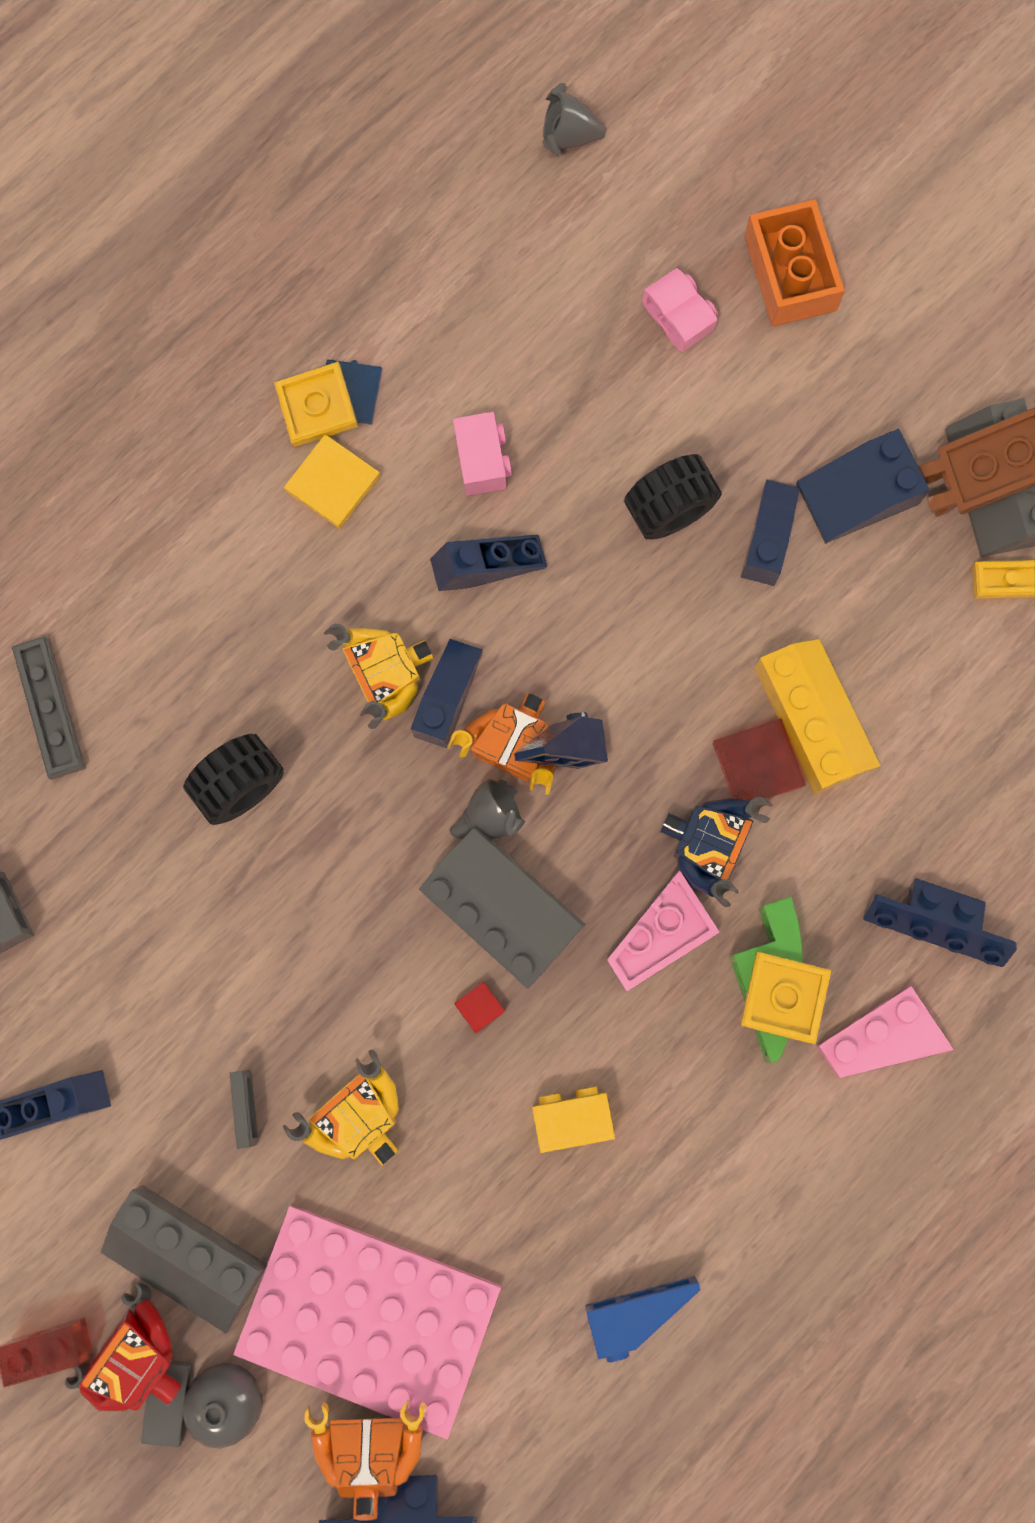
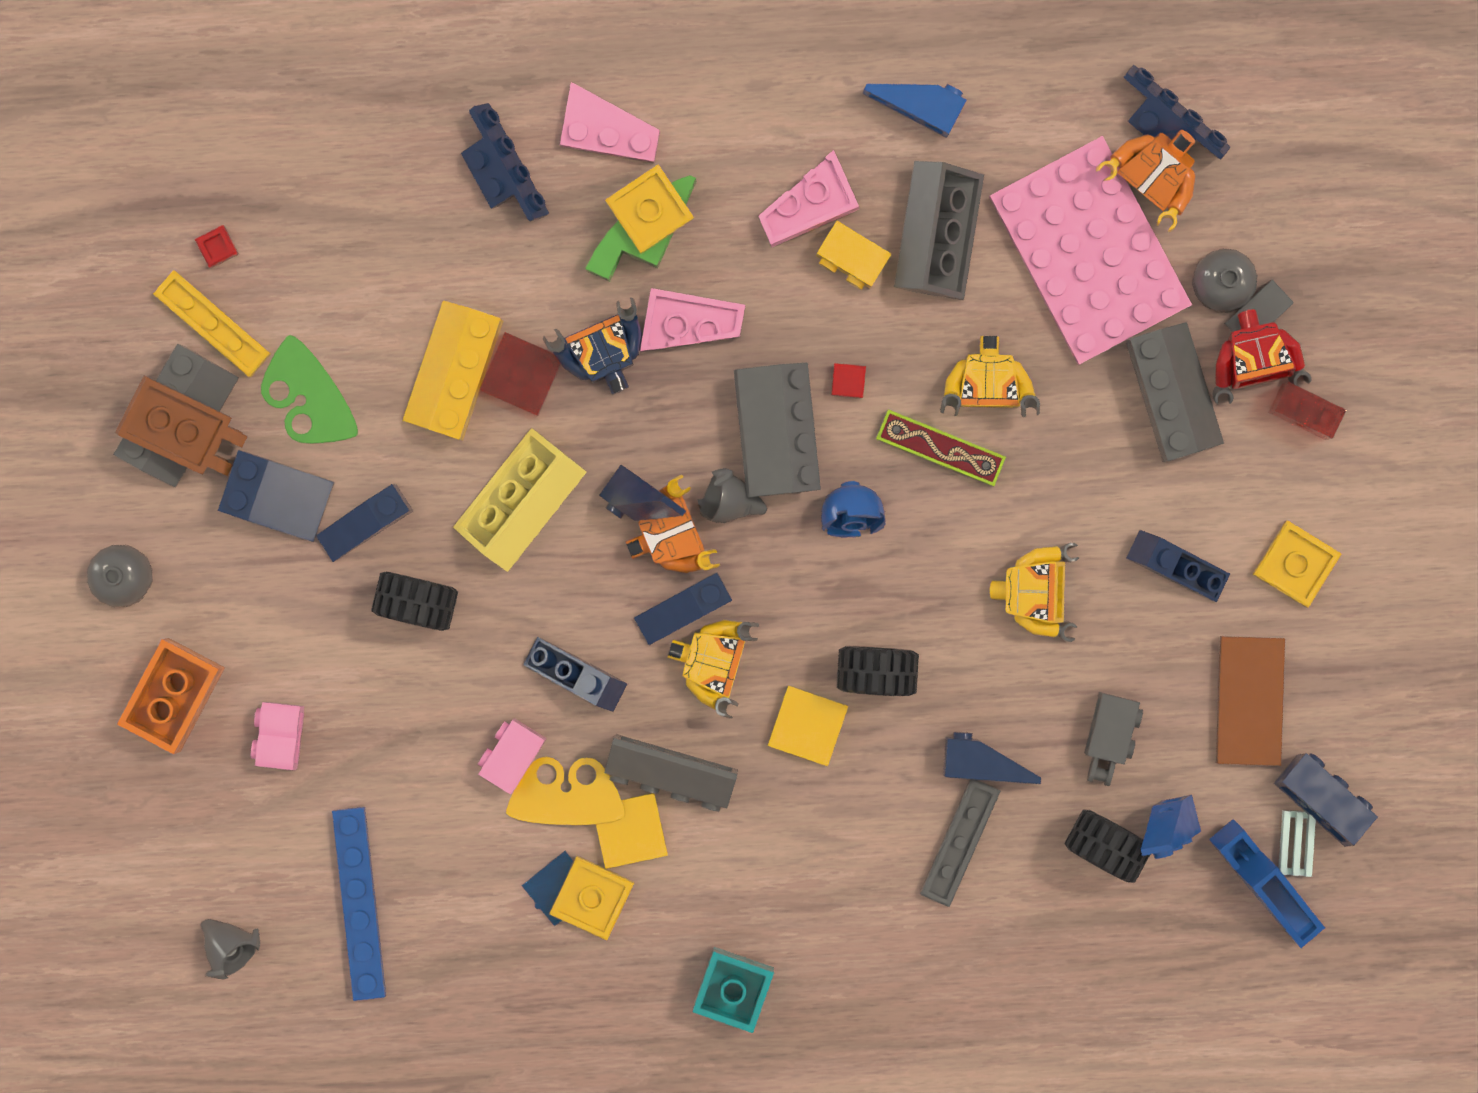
camera: 150 degrees left, 10 degrees up
(86, 784) = (975, 760): none -> dark blue slope
(133, 427) = (733, 989): none -> teal brick
(156, 971) = (1037, 591): none -> yellow torso
(244, 1109) = (1055, 451): dark grey tile -> none
(259, 689) = (807, 725): none -> yellow tile
(339, 552) = (670, 771): none -> dark grey slope
(348, 1021) = (940, 448): none -> tile
(377, 897) = (852, 509): none -> blue cylinder
(390, 463) = (579, 806): none -> yellow piece
(498, 246) = (359, 903): none -> blue plate
(519, 1215) = (939, 229): none -> dark grey slope
(650, 1134) = (811, 203): none -> bright pink wing
(663, 658) = (519, 500): none -> light yellow slope
(922, 321) = (119, 575): none -> dark grey cylinder
(929, 605) = (307, 377): none -> bright green piece

